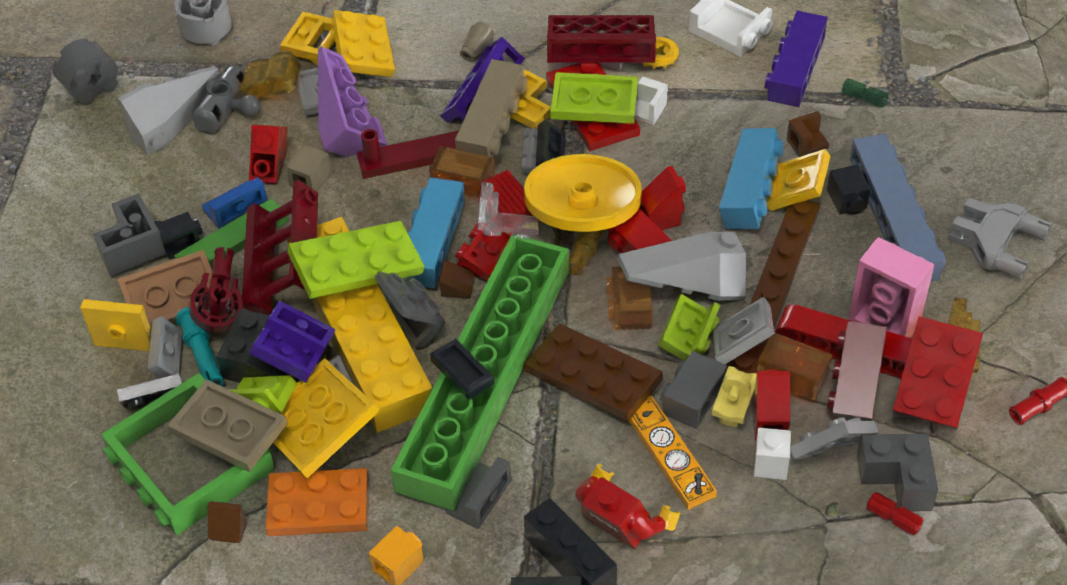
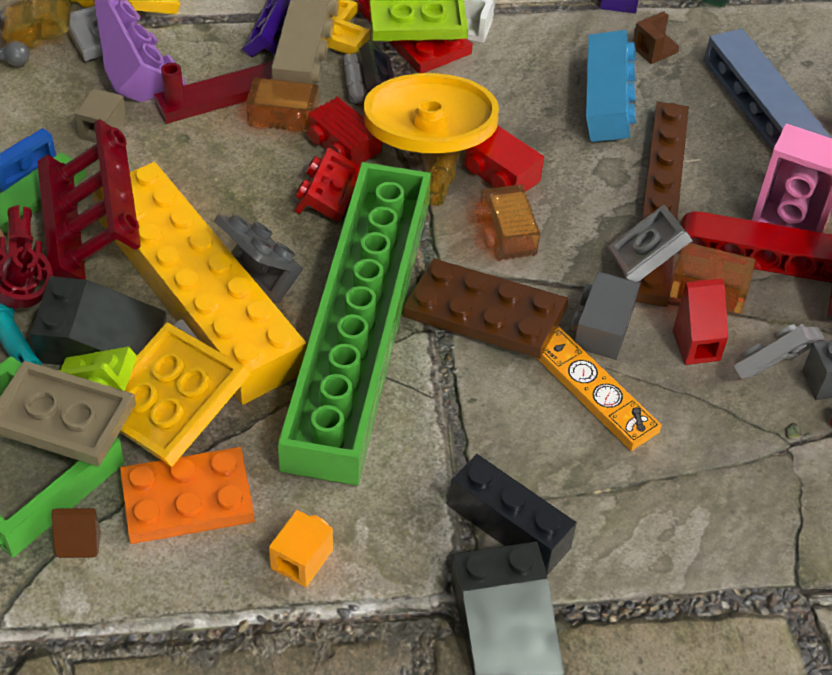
camera: 15 degrees left, 0 degrees up
(267, 152) = (47, 100): red slope -> none
(292, 341) = (125, 306): dark purple brick -> none
(354, 258) = (182, 203): lime plate -> none
(435, 226) = (263, 169): dark azure brick -> none
(456, 281) = (301, 224): reddish brown slope -> none
(462, 368) = (339, 316): black tile -> none
(482, 492) = (387, 459): dark grey panel -> none
(494, 223) = (333, 130): clear bracket -> none
(619, 511) = (558, 459): red torso -> none
(663, 199) = (524, 110): red slope -> none
(688, 328) = (583, 249): lime bracket -> none
(699, 263) = (577, 176): light grey wedge -> none
(734, 397) = (656, 318): light yellow hips -> none
(772, 453) = (714, 375): white brick -> none
(799, 180) = (664, 82): yellow plate -> none
(848, 189) = (715, 89): black brick -> none
(857, 371) = (787, 274): brick -> none

